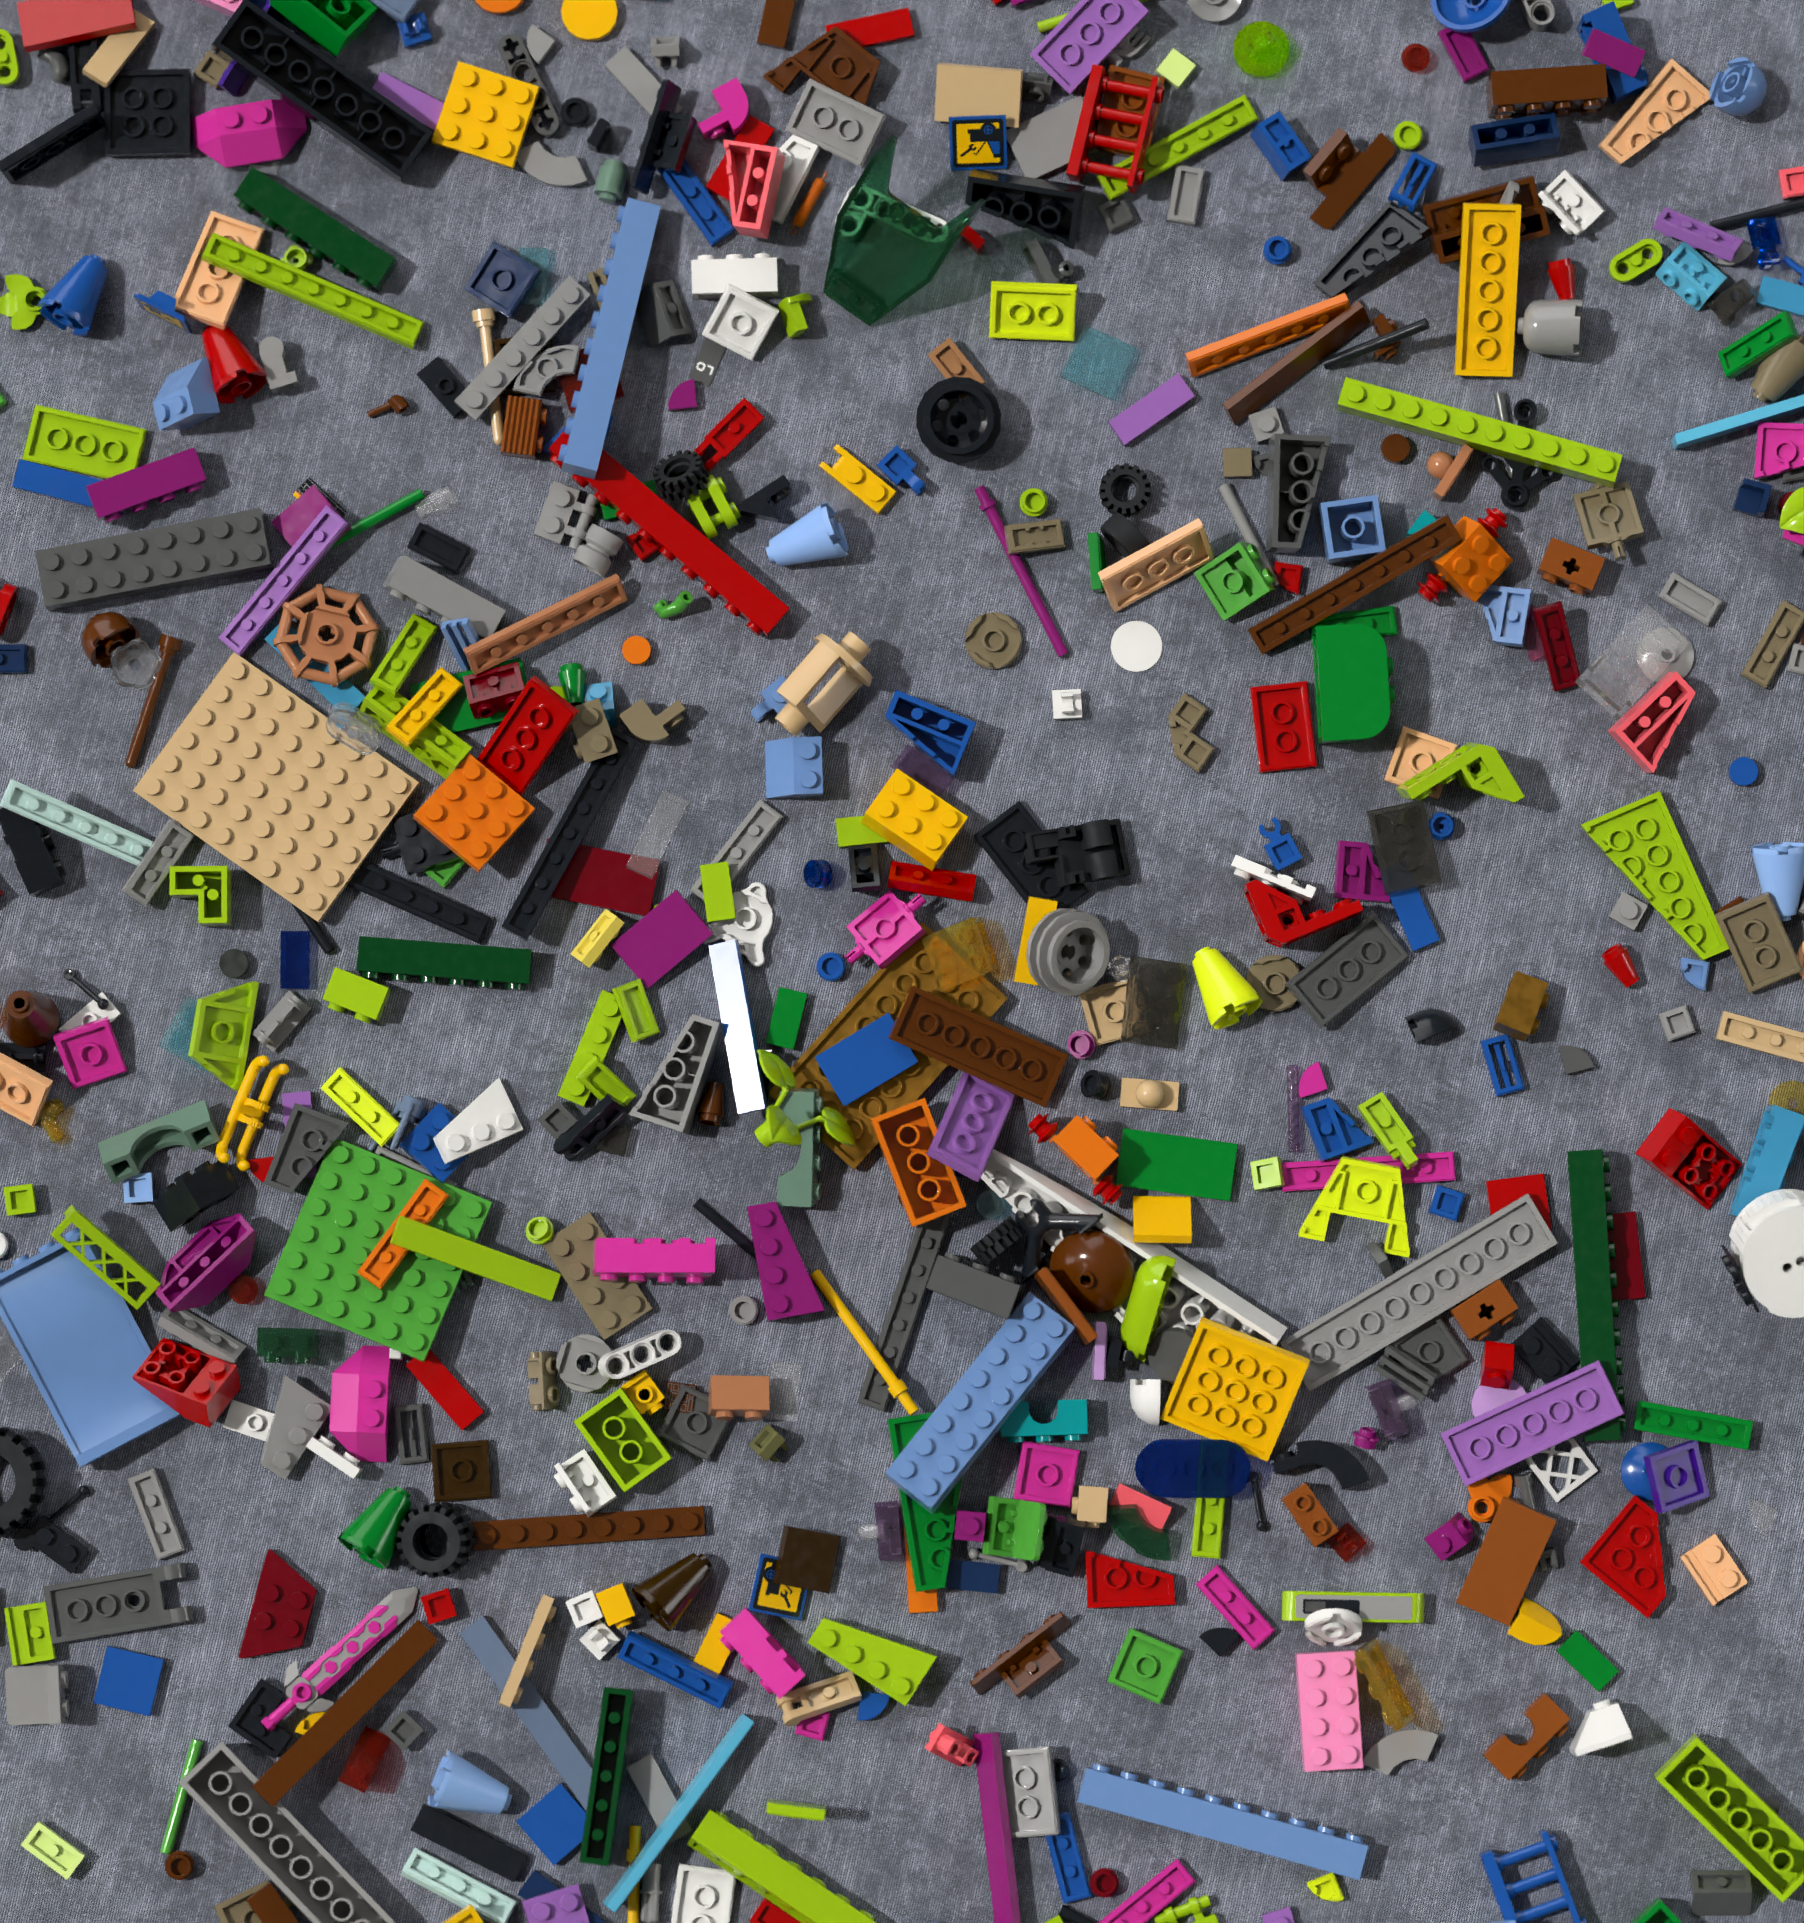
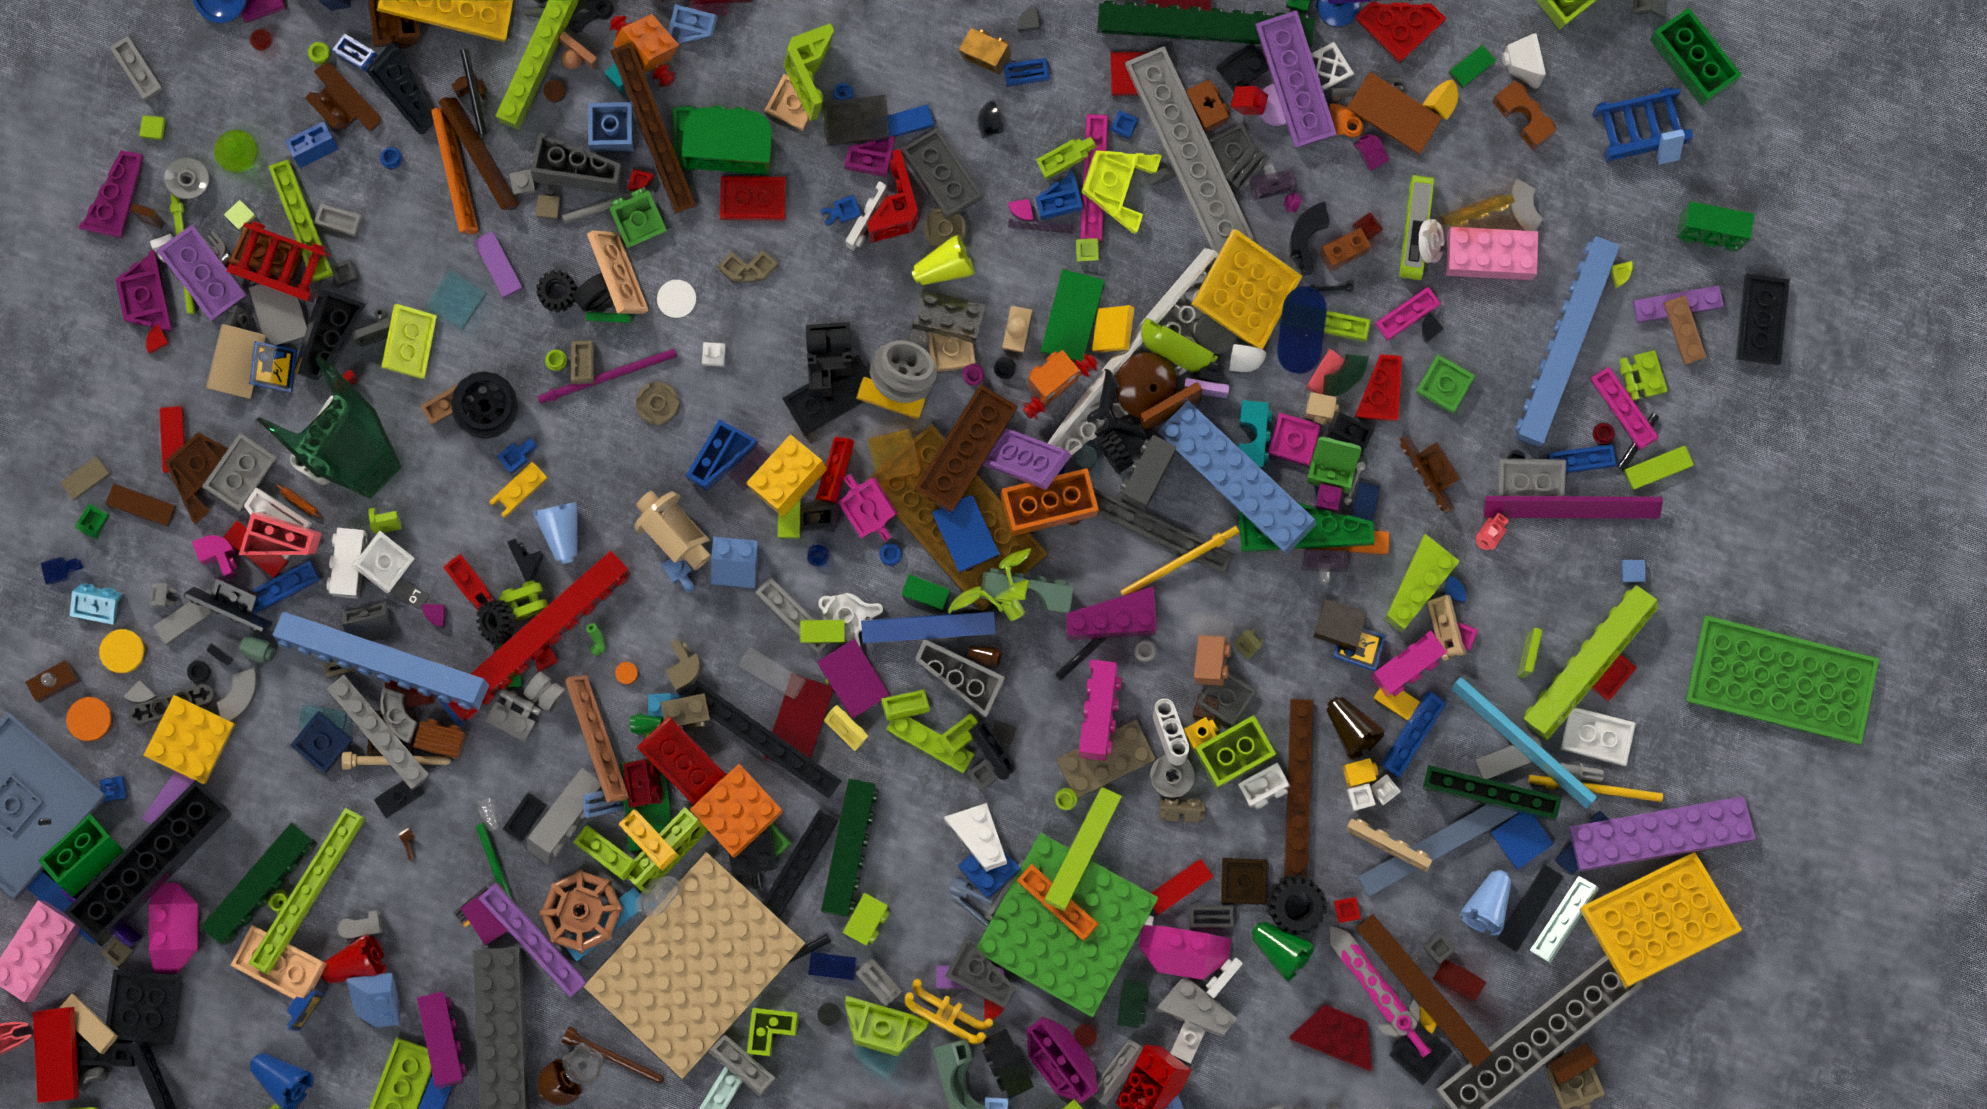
camera: 90 degrees left, 5 degrees down
(361, 1106) = (953, 926): neon yellow tile -> none

